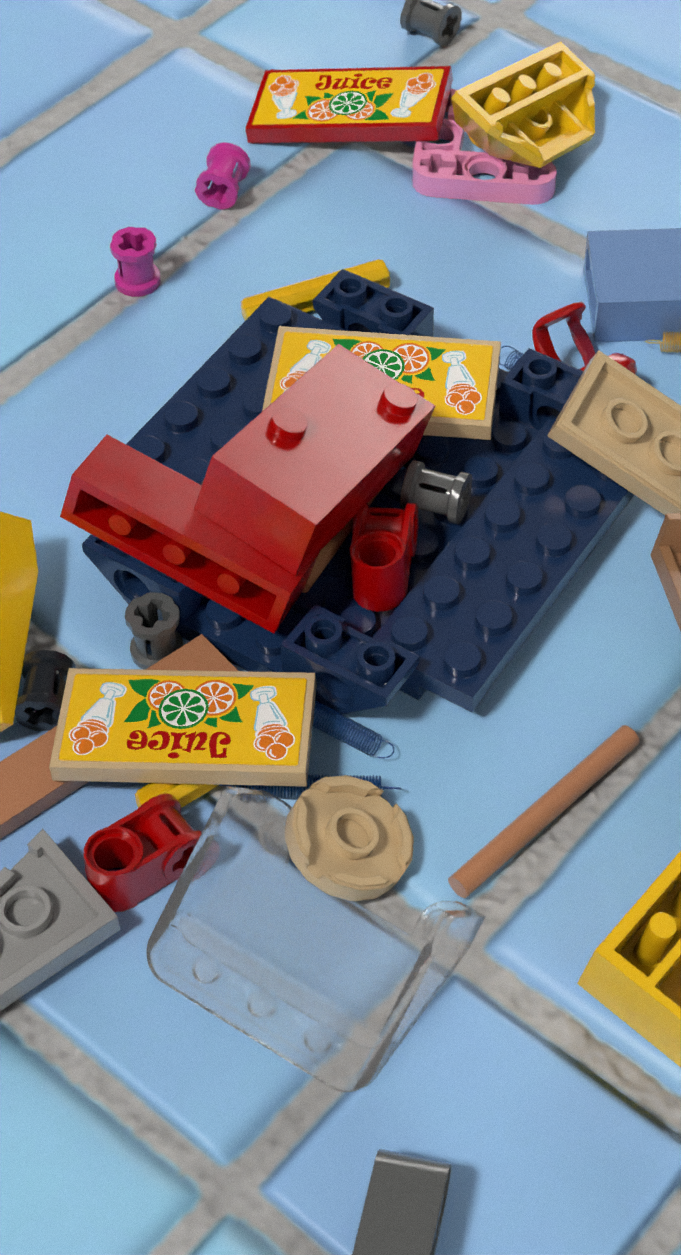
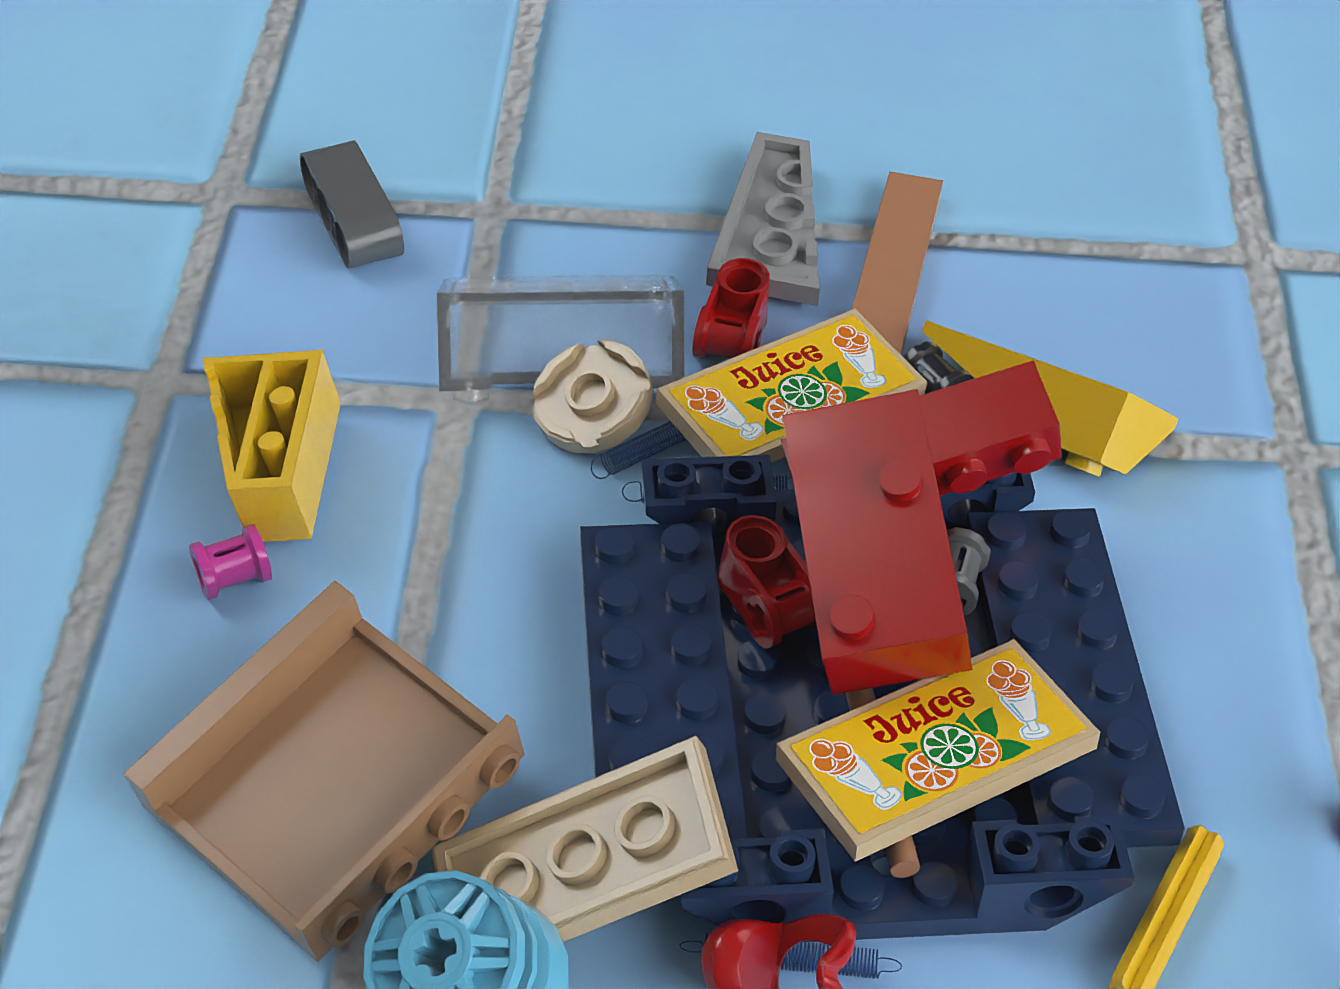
camera: 140 degrees right, 5 degrees down
(437, 491) = (775, 672): dark grey bush -> none
(543, 811) = (458, 521): nougat bar -> none

